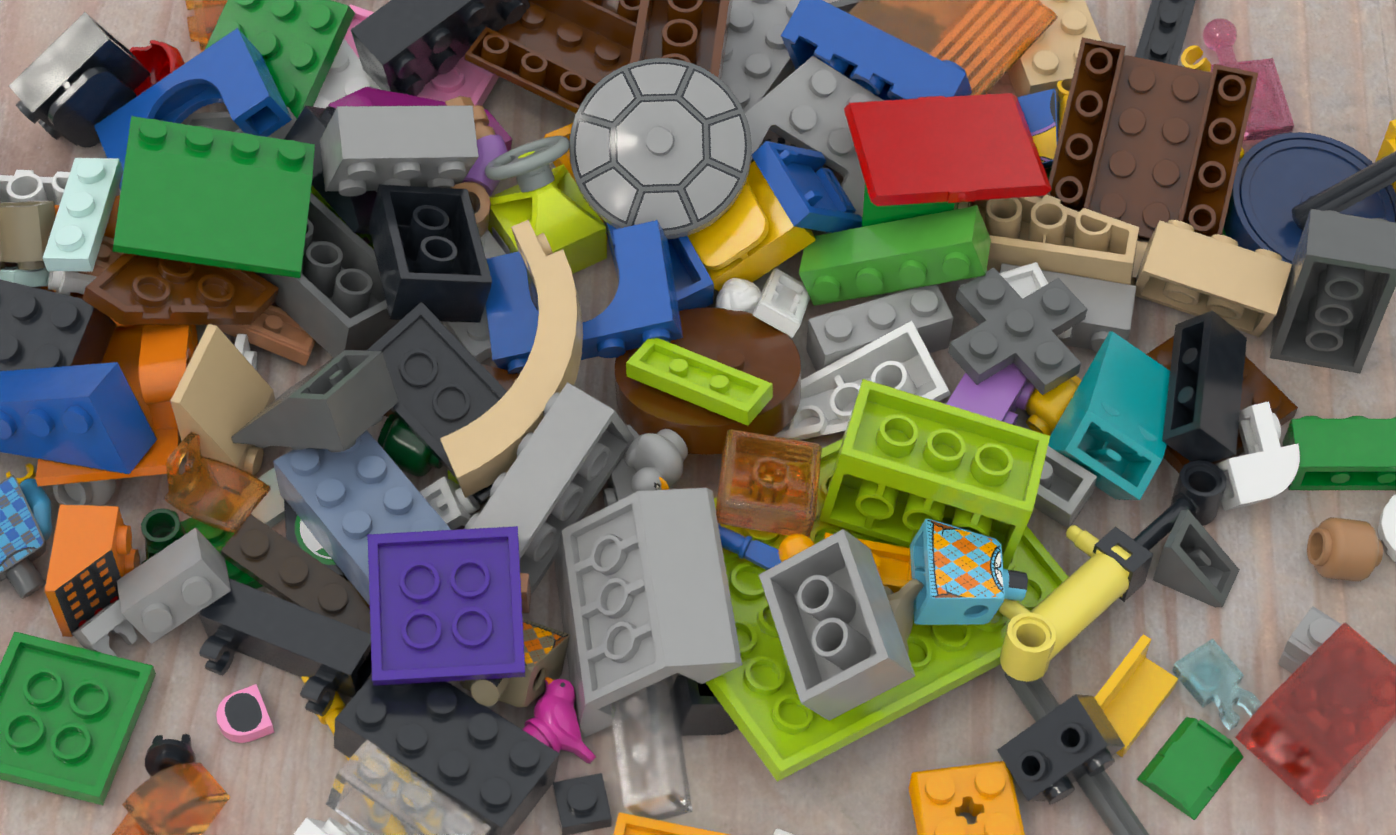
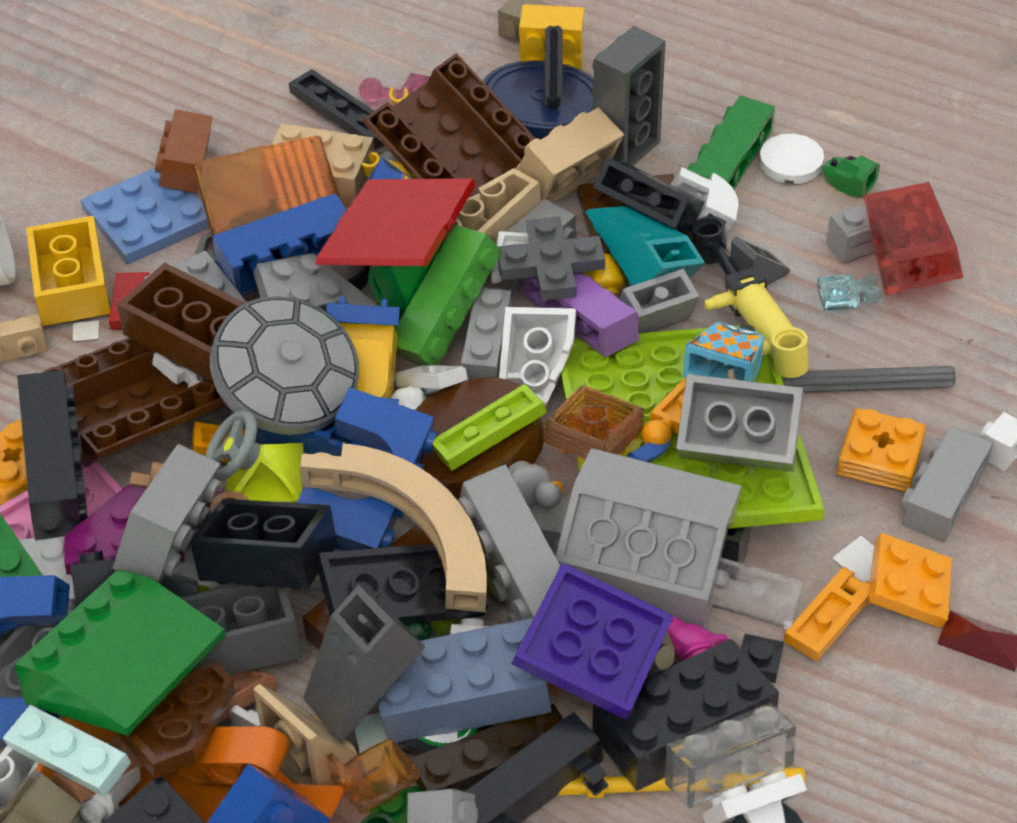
camera: 60 degrees left, 10 degrees down
(936, 462) = (639, 332): lime brick -> none
(1061, 749) = (867, 372): black brick -> none
(1135, 693) = (834, 337): yellow panel -> none
(1191, 766) = (892, 332): green piece -> none
(1344, 549) = (788, 194): medium nougat head -> none

